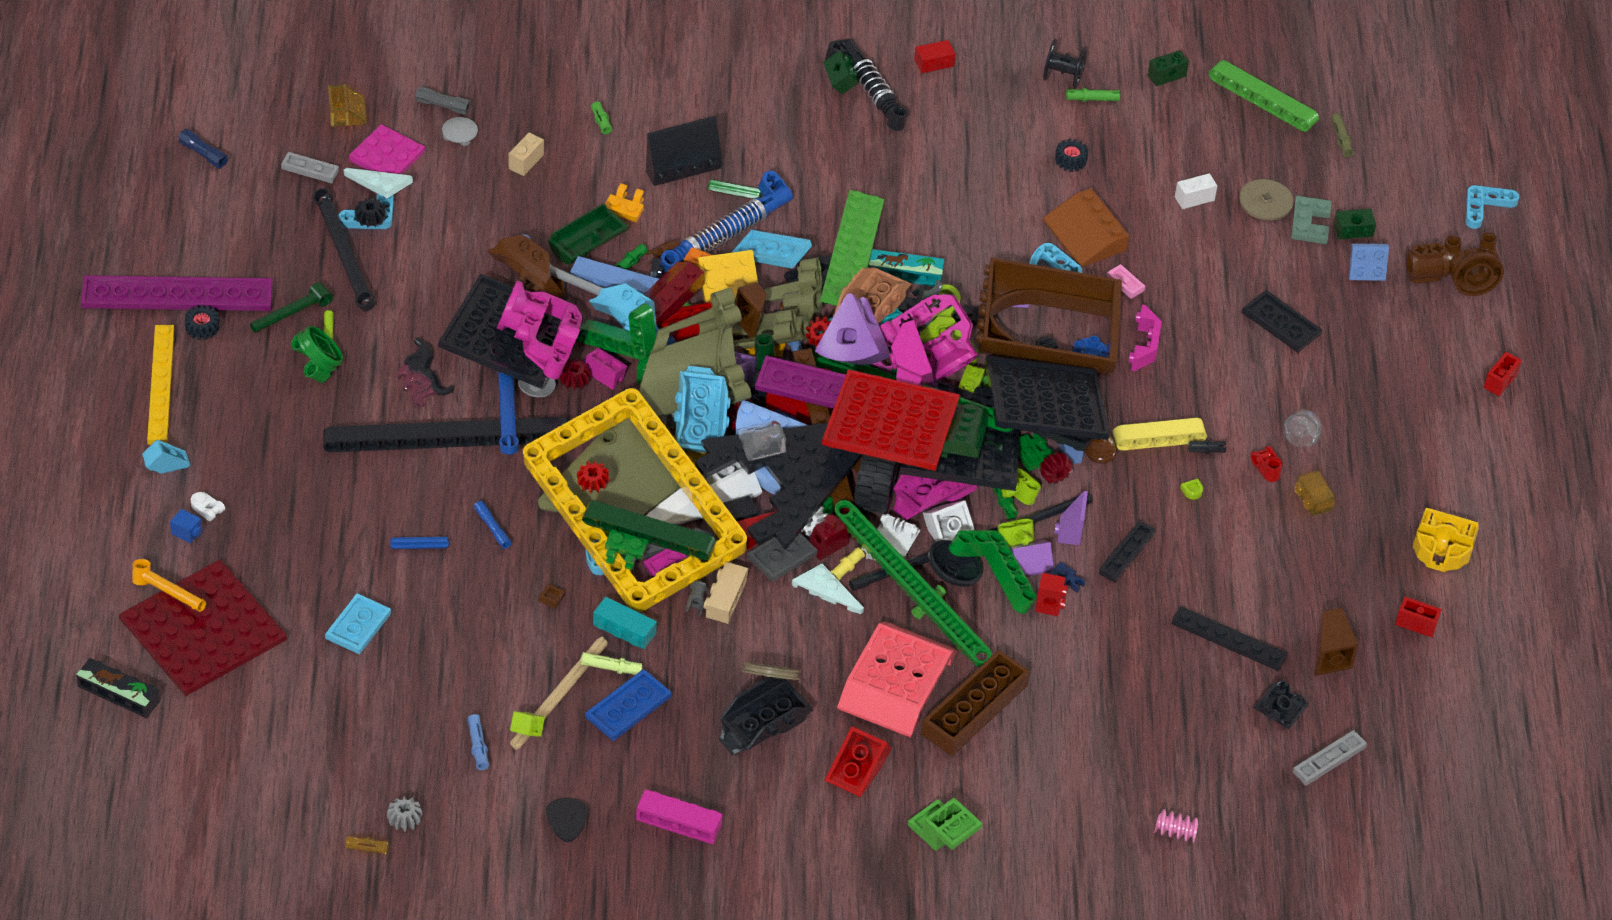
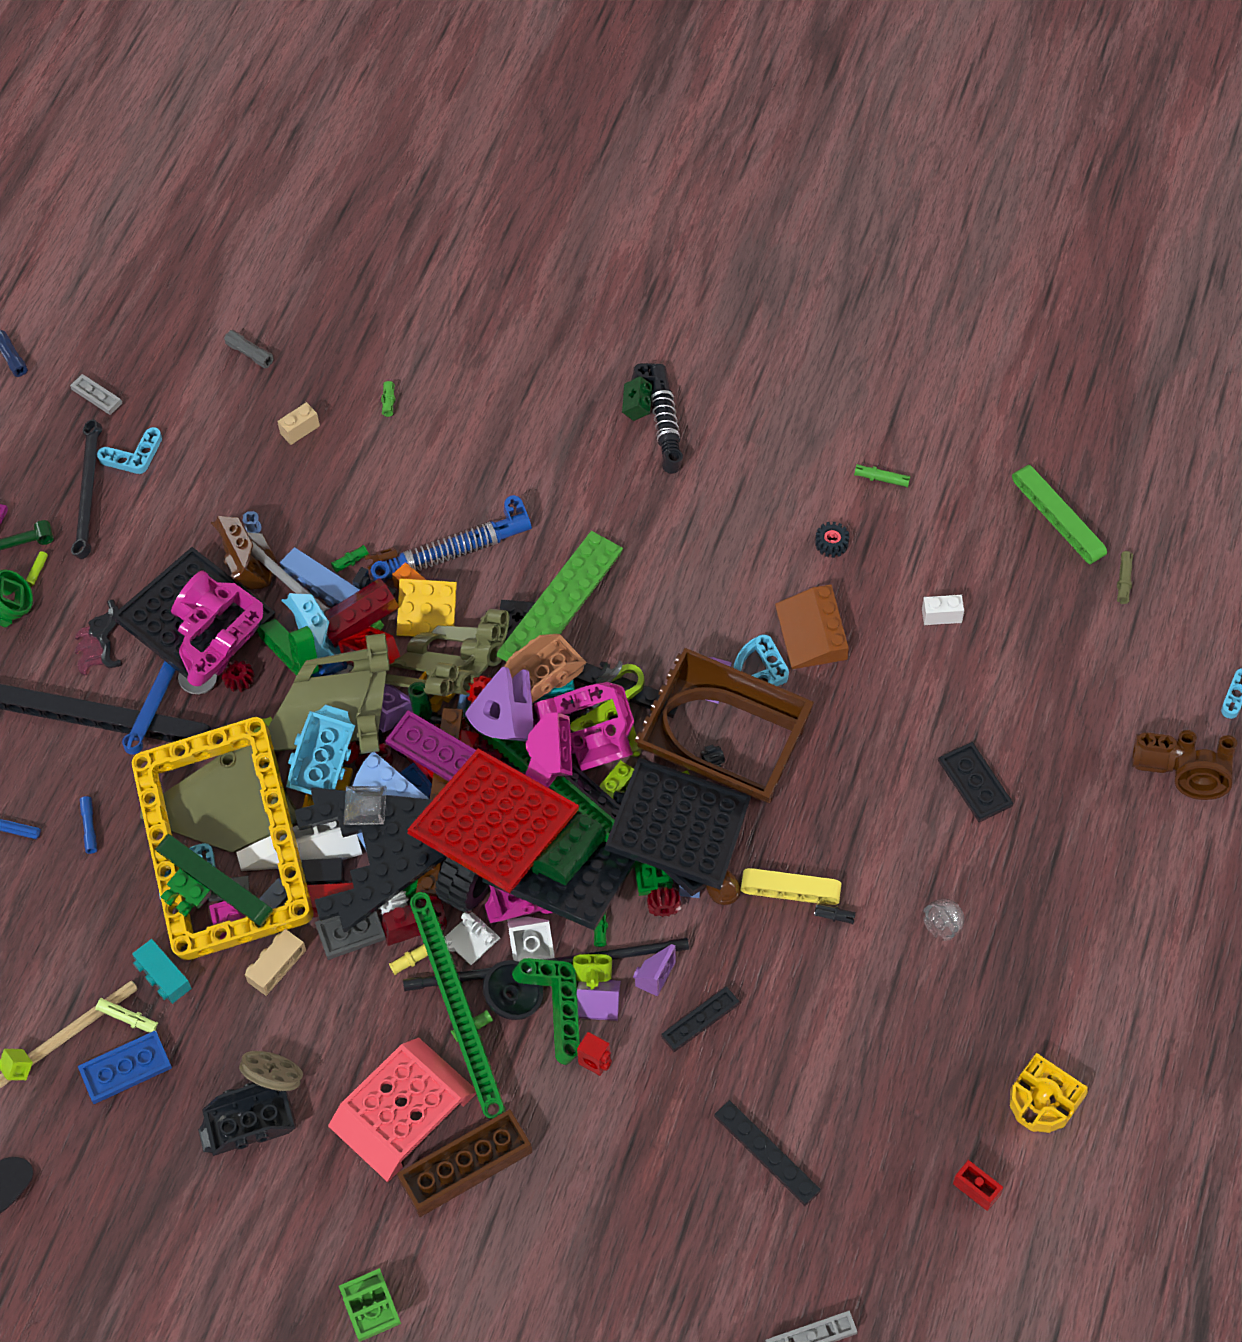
camera: 25 degrees right, 10 degrees up
(346, 106) = (155, 336): clear yellow slope -> none
(370, 212) = (123, 456): black gear -> none
(379, 182) = (151, 425): light aqua wing -> none
(386, 151) = (174, 394): dark pink plate -> none
(459, 130) = (251, 383): light grey dish -> none
(551, 596) = (109, 920): reddish brown tile -> none
(586, 234) = (315, 523): dark green container -> none
(593, 476) = (184, 799): red gear -> none
(605, 368) = (269, 675): dark pink hinge -> none
(625, 208) = (369, 502): light orange plate -> none
(679, 816) = (115, 1214): dark pink brick -> none
(683, 151) = (442, 455): black slope -> none
(696, 597) = (245, 957): dark grey piece -> none
(734, 189) = (481, 504): axle -> none
(750, 301) = (425, 647): reddish brown slope -> none
(774, 248) = (483, 581): medium azure plate -> none
(825, 585) = (376, 975): light aqua wing -> none
(858, 762) = (319, 1199): red slope -> none
(908, 267) = (611, 631): teal brick -> none
(934, 56) = (739, 399): red brick -> none
(1026, 488) = (621, 915): lime beam -> none
(1065, 63) = (862, 436): black piece -> none
(1069, 574) = (624, 1030): dark blue plate -> none
(1090, 346) = (758, 768): blue dish -> none
(1130, 284) = (828, 697): bright pink plate -> none
(1149, 323) = (811, 790): dark pink slope -> none
(1168, 68) = (970, 462): dark green brick -> none
(1192, 489) = (801, 960): lime tile -> none
(1253, 199) = (1021, 646): dark tan piece -> none
(1267, 463) = (890, 948): red piece -> none
(1281, 704) = (788, 1252): black slope -> none
(1303, 211) = (1041, 673): sand green plate -> none
(1314, 493) = (927, 1000): clear yellow brick -> none
(1335, 643) = (870, 1195): reddish brown slope -> none
(1354, 224) = (1105, 681): dark green brick -> none
(1368, 262) = (1091, 736): medium blue plate -> none
(1502, 374) = (1187, 906): red brick -> none

